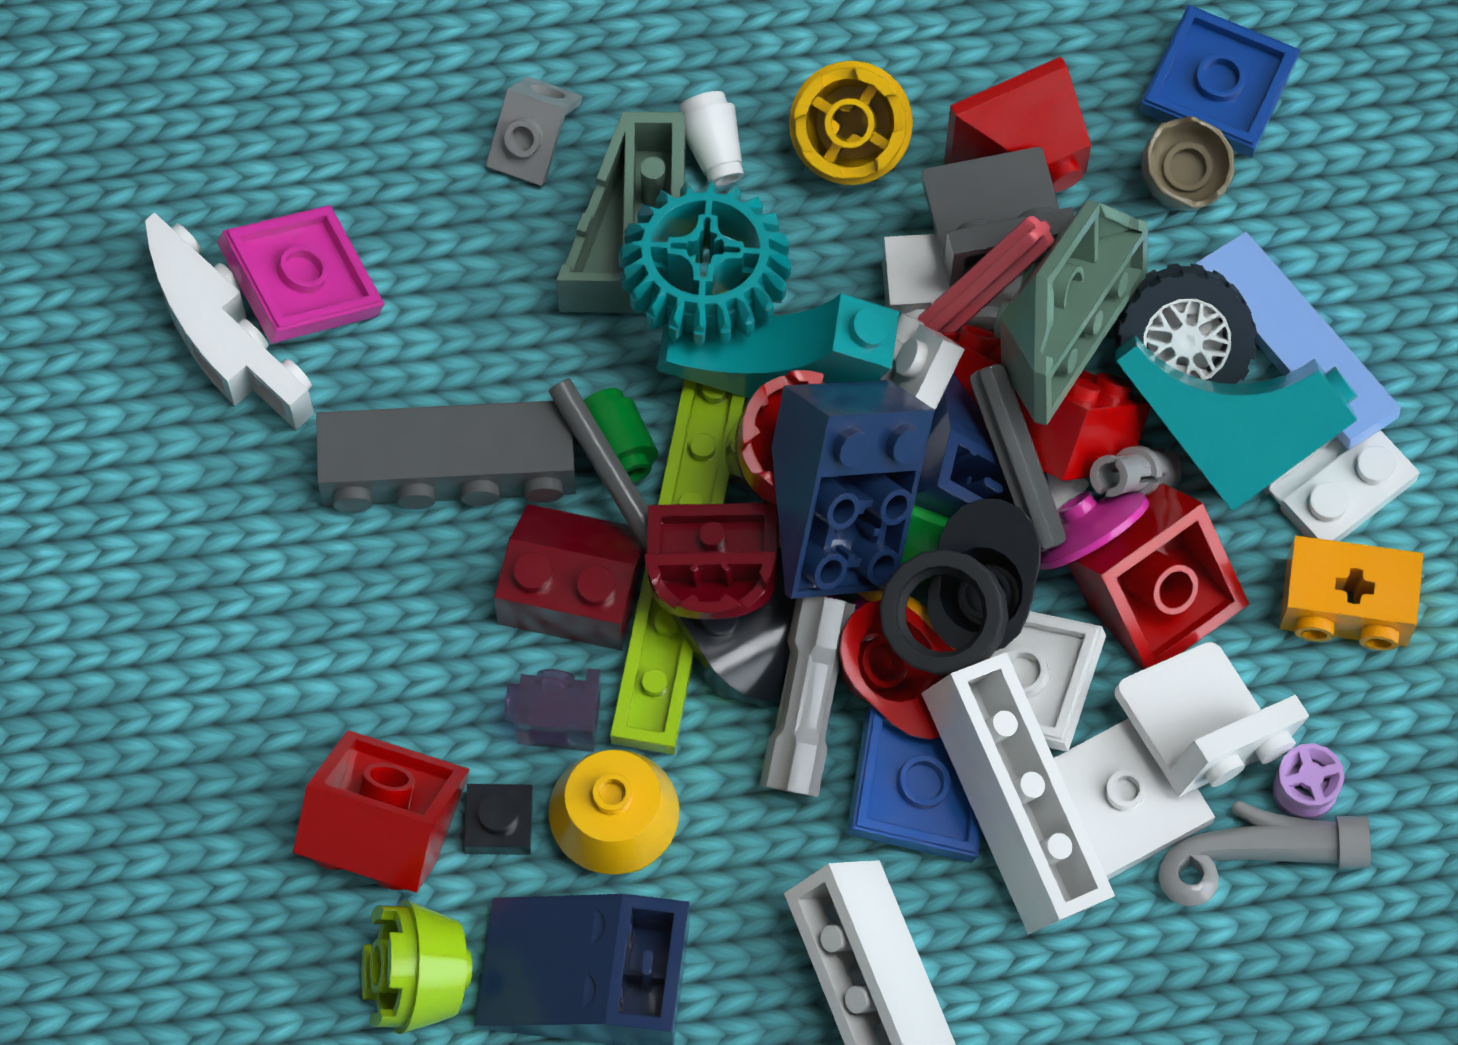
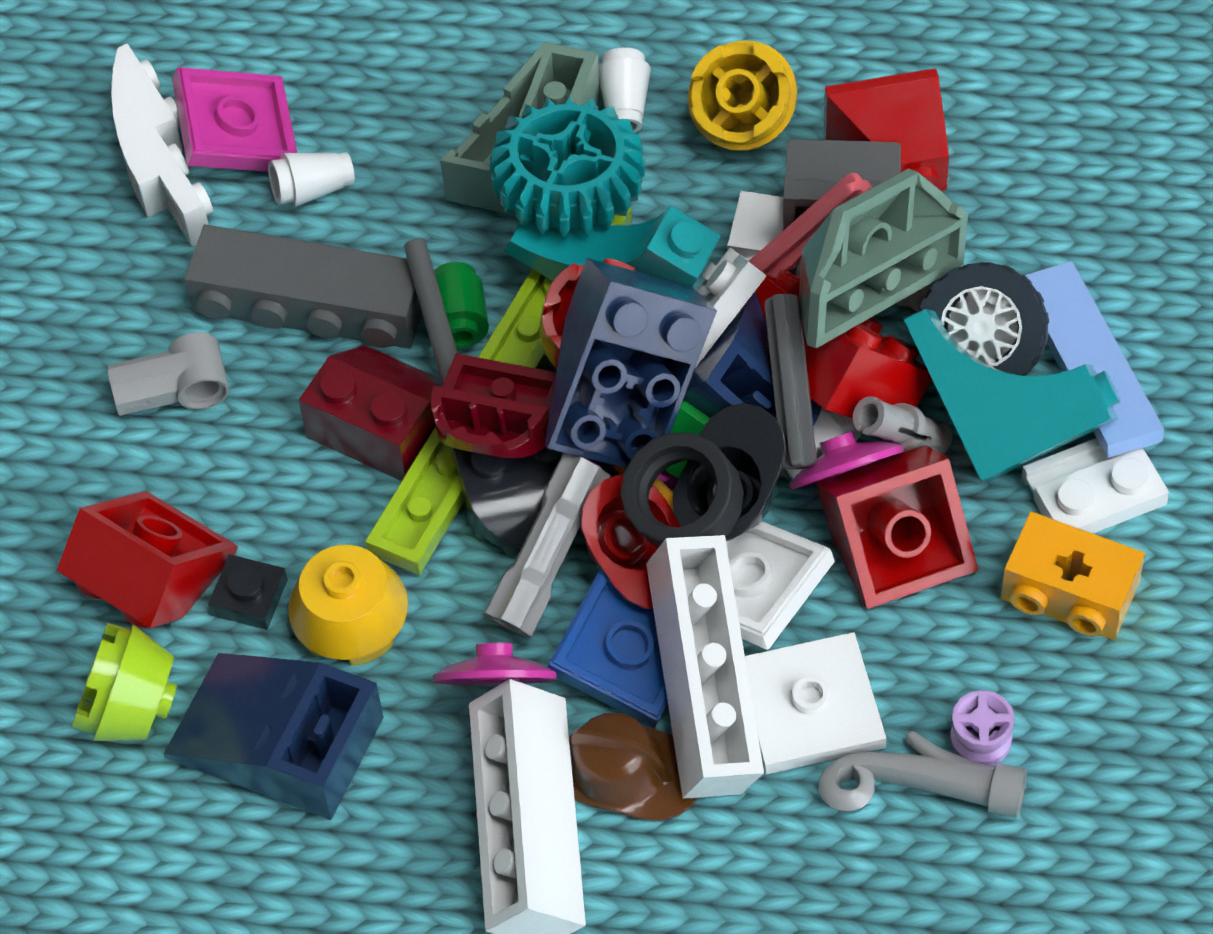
camera: 20 degrees right, 10 degrees down
(347, 587) = (186, 374): none -> light grey piece
(402, 320) = (307, 176): none -> white cone
(530, 129) = (468, 52): light grey bracket -> none
(555, 709) = (327, 509): clear purple brick -> none
(799, 851) = (494, 665): none -> dark pink dish
(961, 915) = (626, 768): none -> reddish brown piece
(1187, 163) = (1034, 193): dark tan hair -> none
(1204, 718) = (901, 649): white bracket -> none
(1221, 77) = (1087, 136): blue plate -> none

